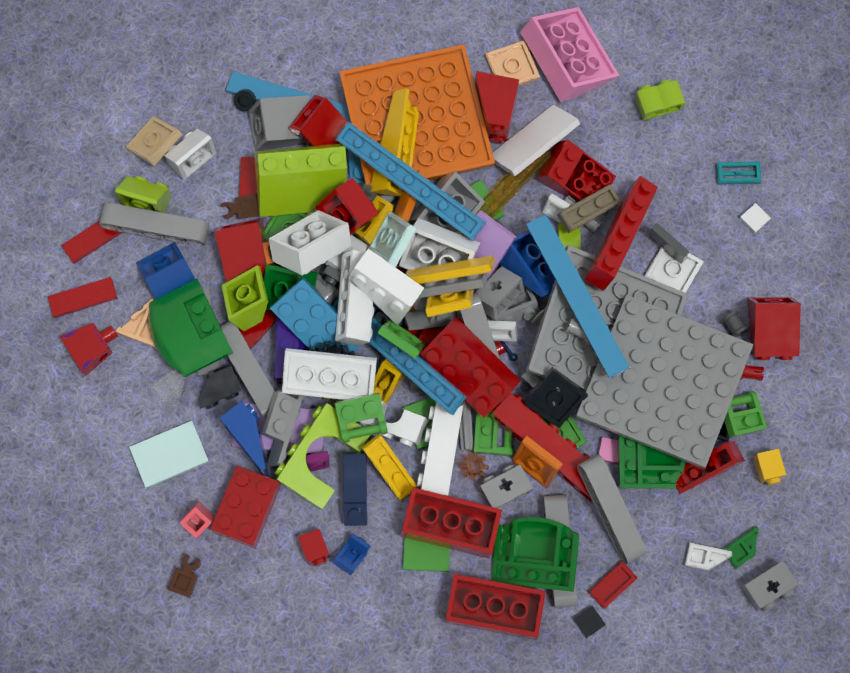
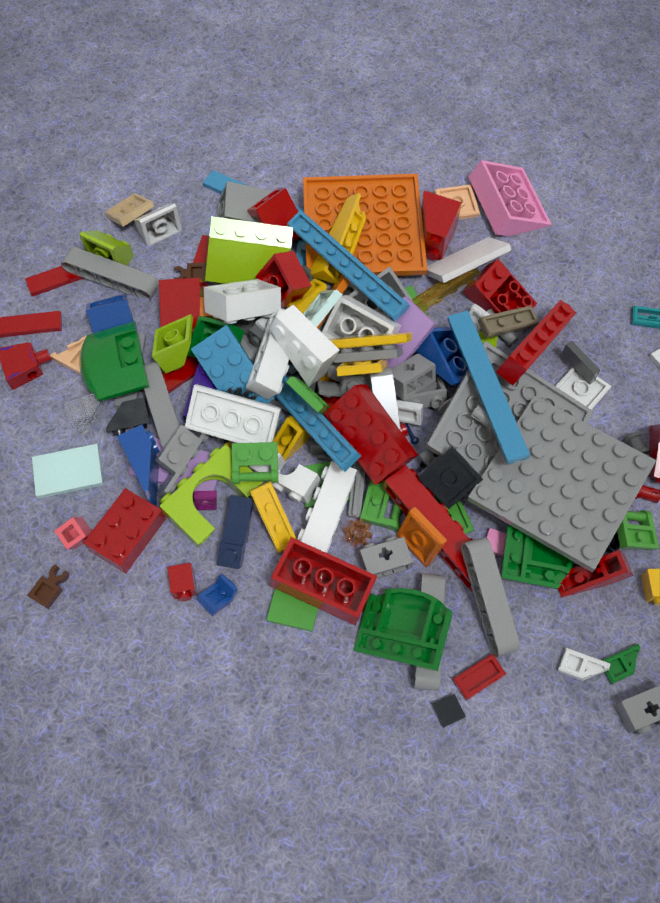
camera: 10 degrees right, 10 degrees down
(244, 99) = (214, 191): black tile -> none
(495, 607) = (352, 674): red brick -> none
(659, 99) = (586, 246): lime brick -> none

